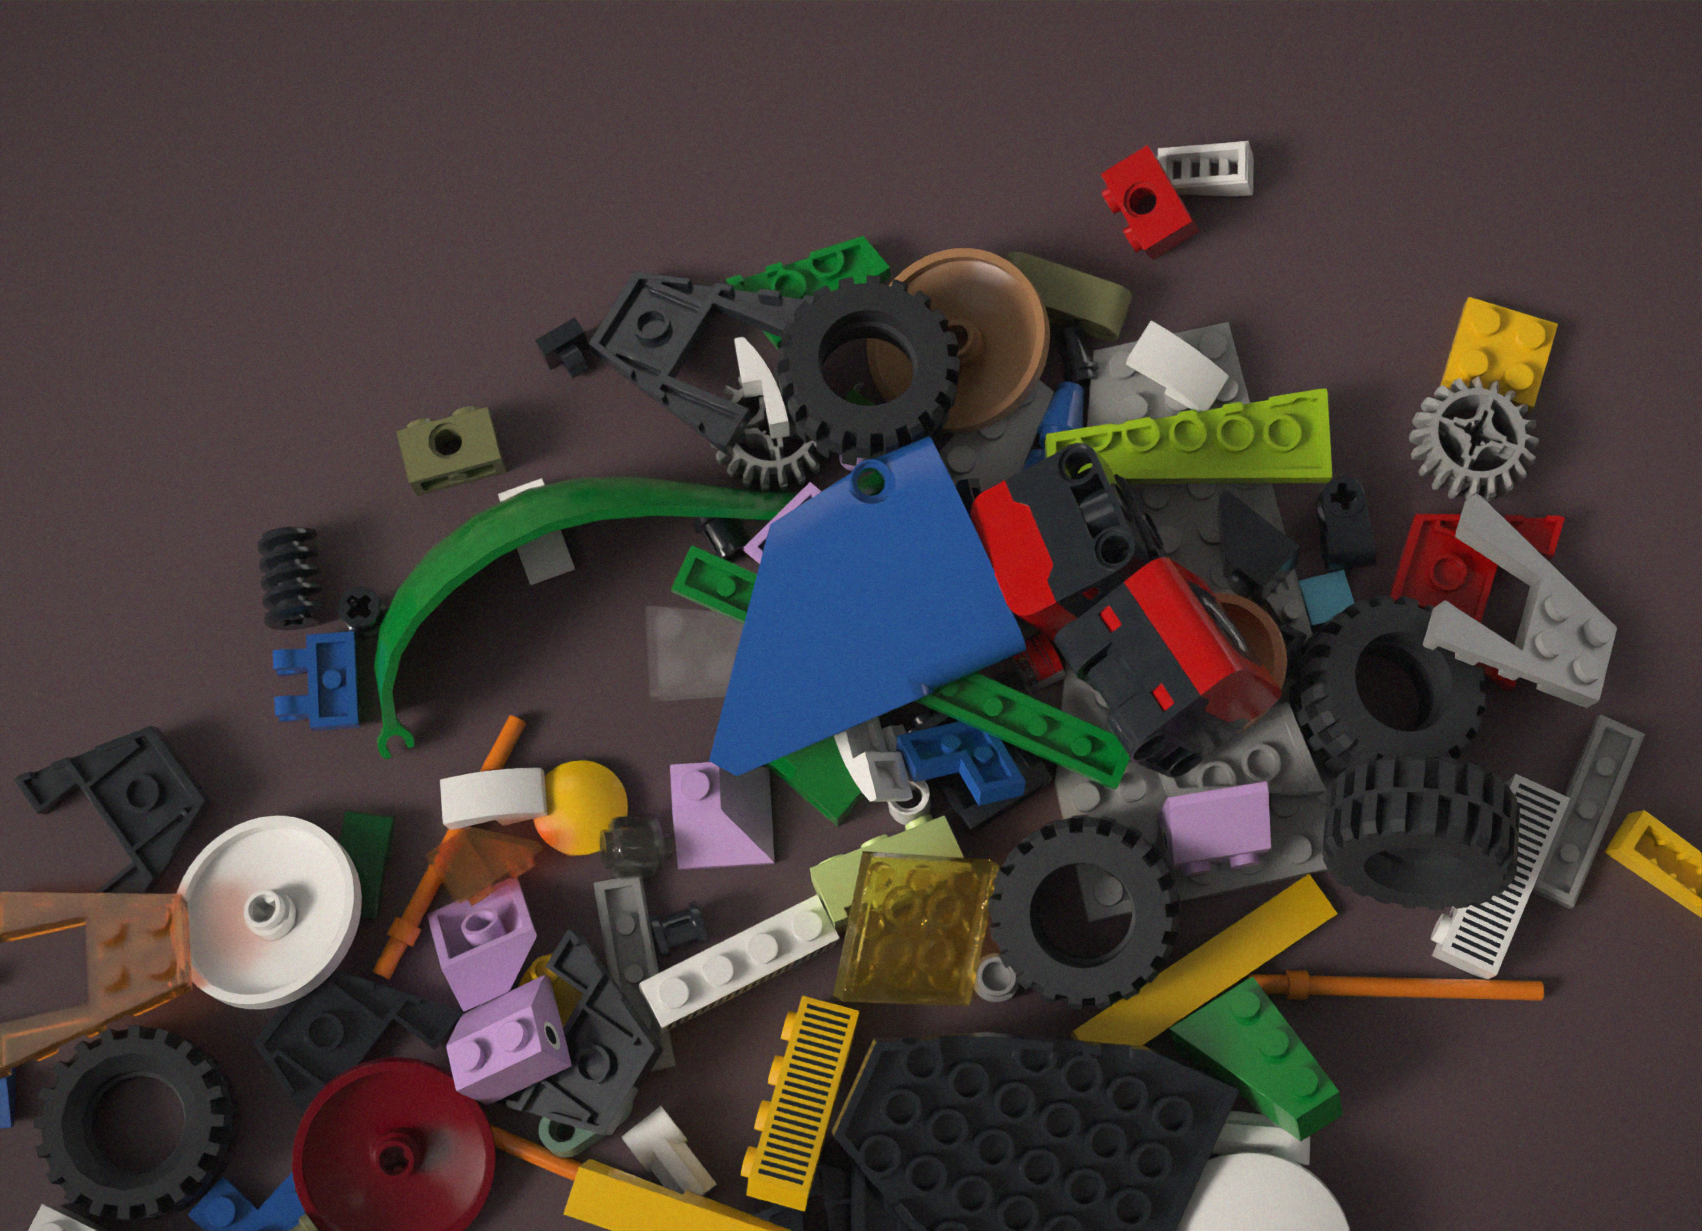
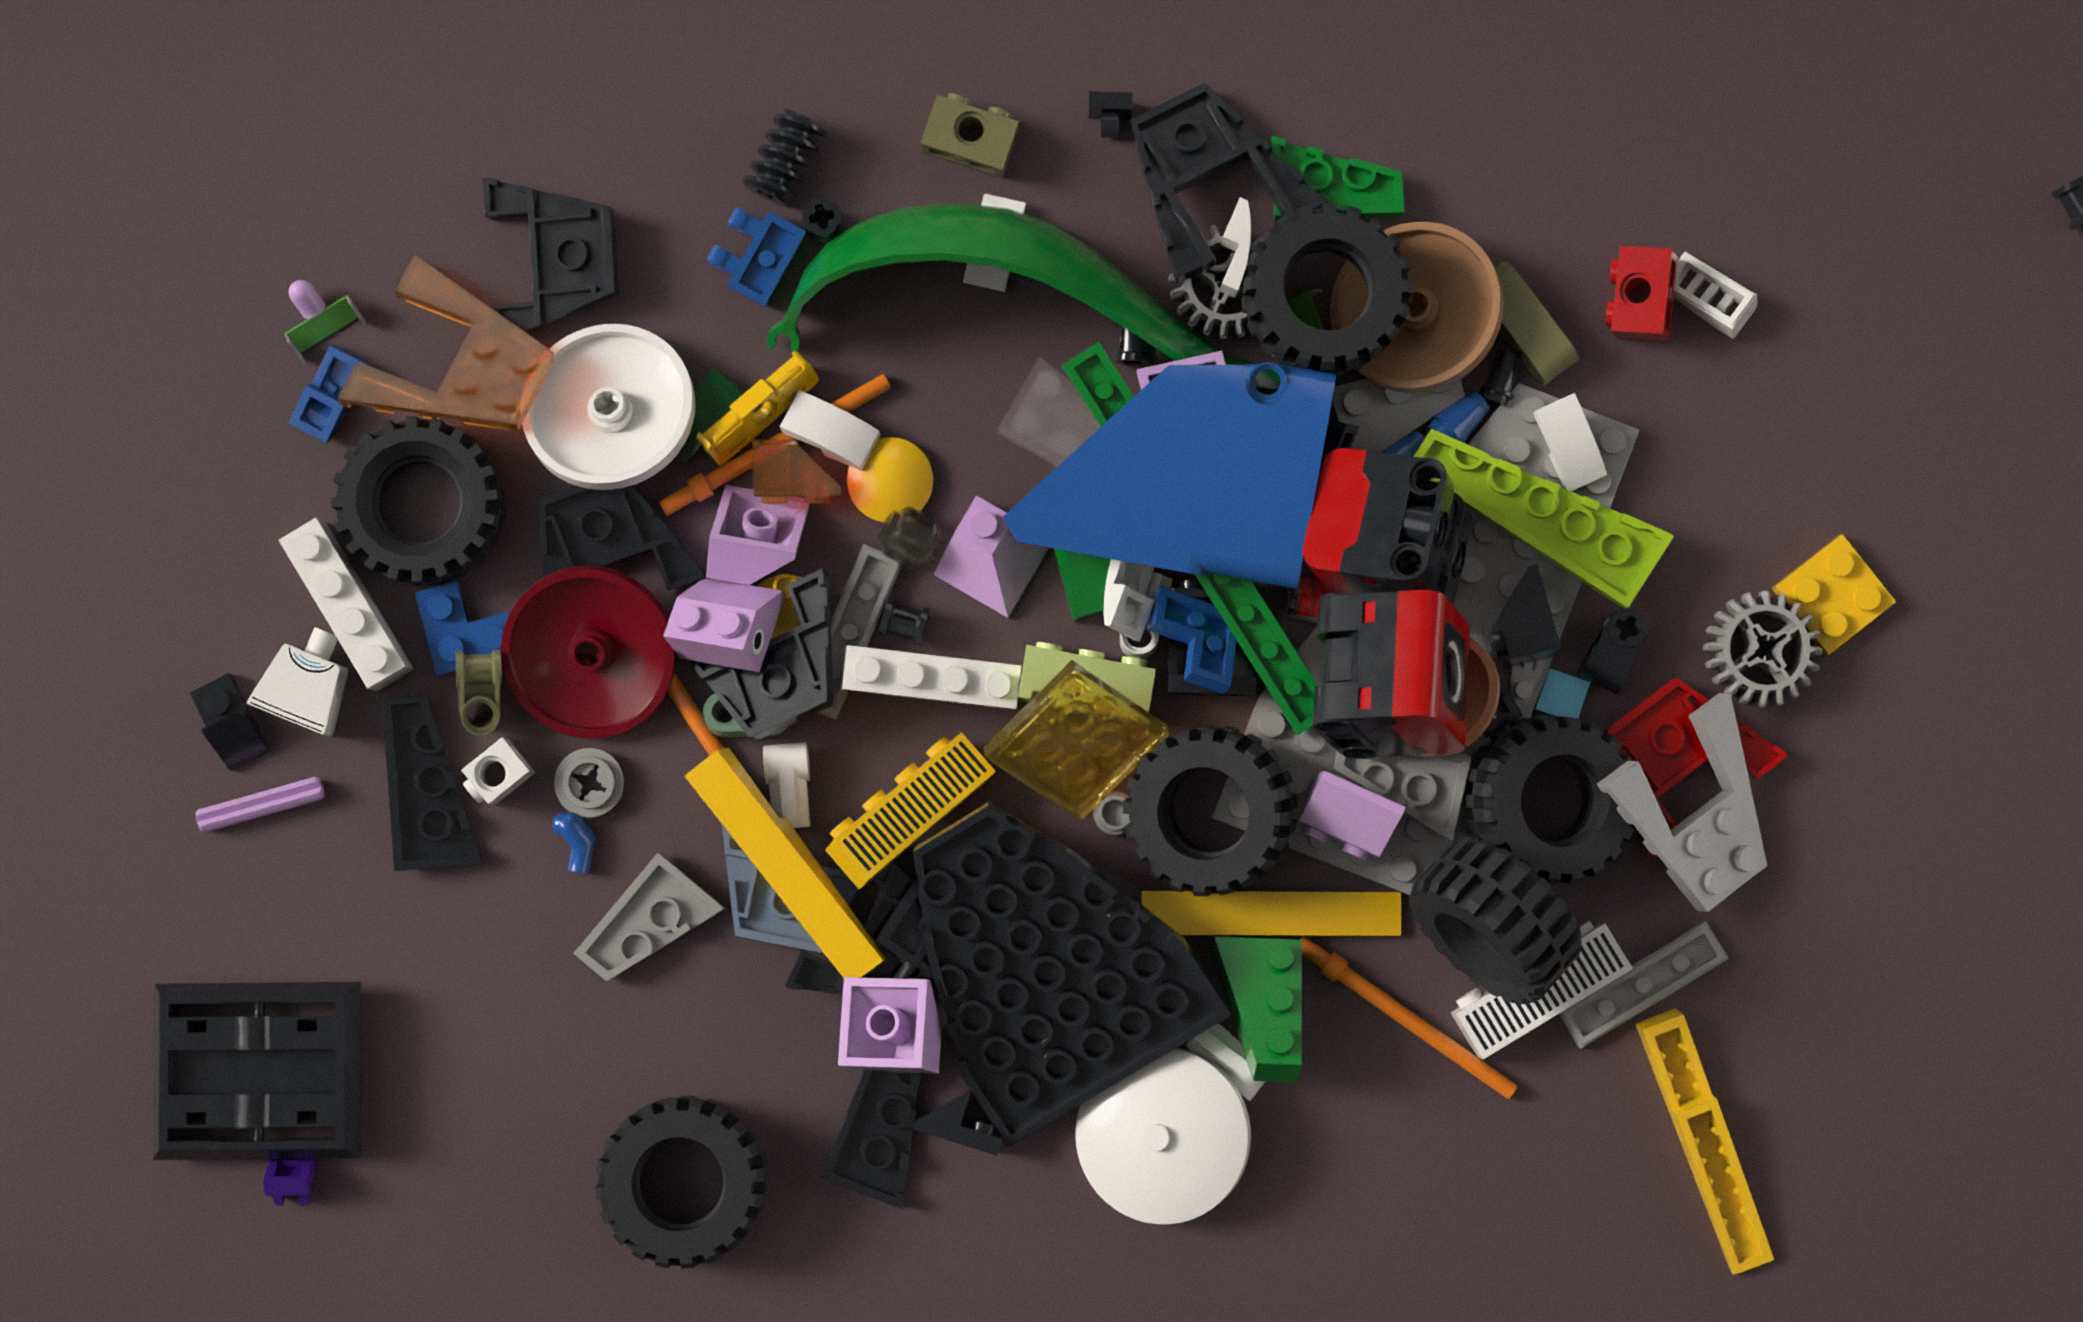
camera: 30 degrees right, 10 degrees up
(403, 848) = (742, 426): none -> yellow piece

